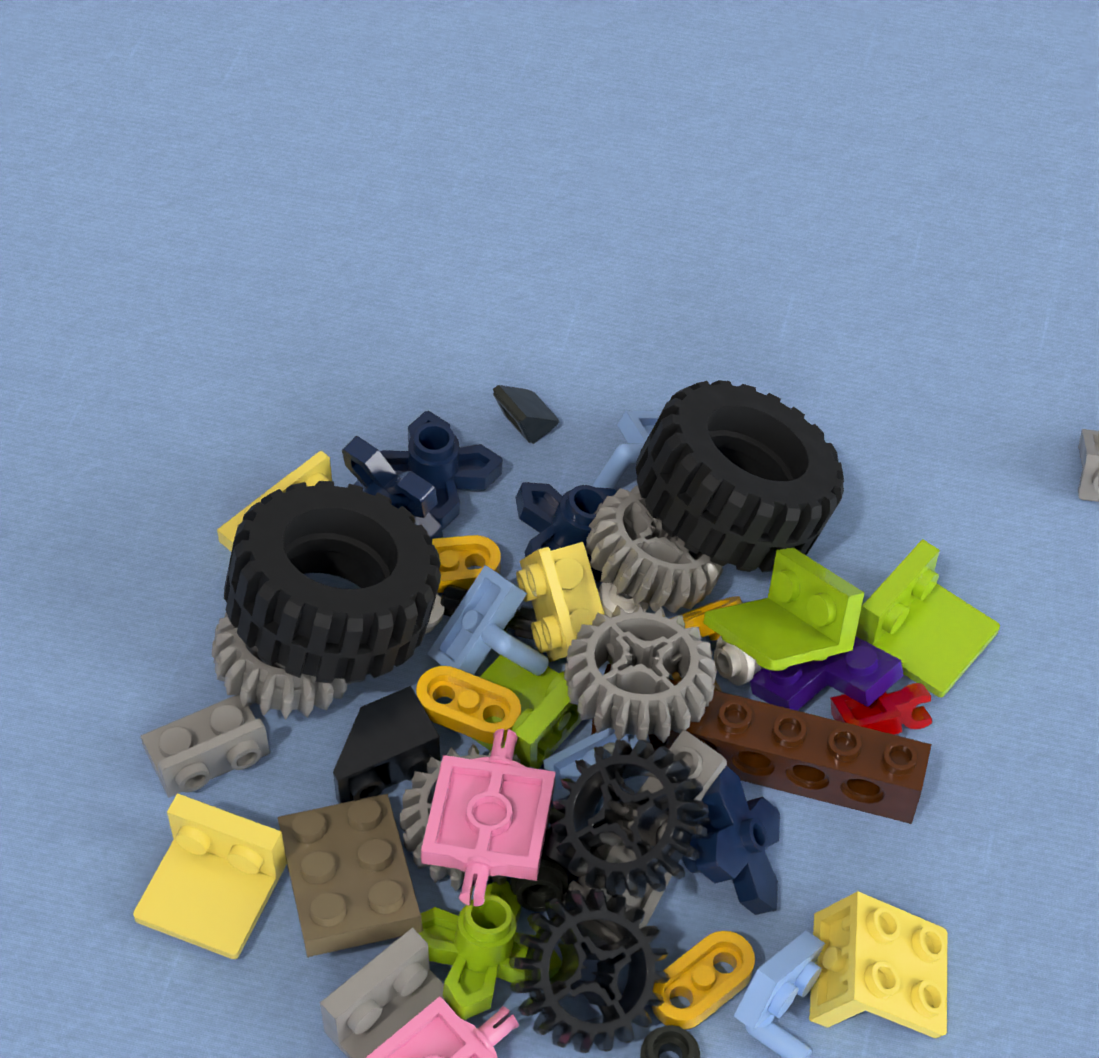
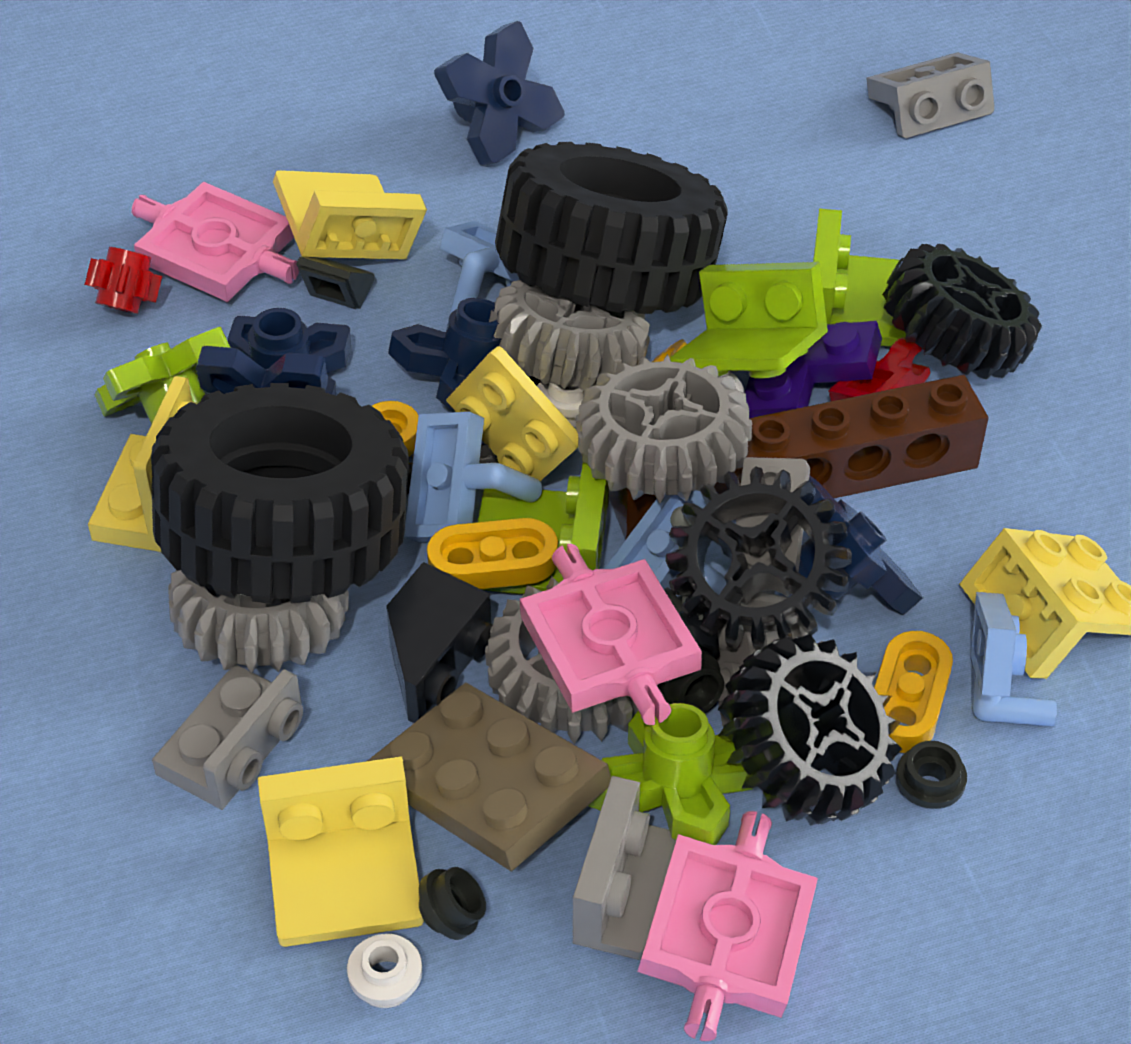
camera: 30 degrees left, 5 degrees down
(189, 992) = (389, 987): none -> white plate
(271, 955) = (451, 902): none -> pearl dark grey plate
(332, 436) = (152, 372): none -> lime plant
(367, 341) = (123, 280): none -> red gear
(458, 335) = (215, 240): none -> bright pink plate
(563, 360) = (348, 215): none -> light yellow bracket
(754, 308) = (496, 95): none -> dark blue plant
(971, 690) = (961, 311): none -> black gear

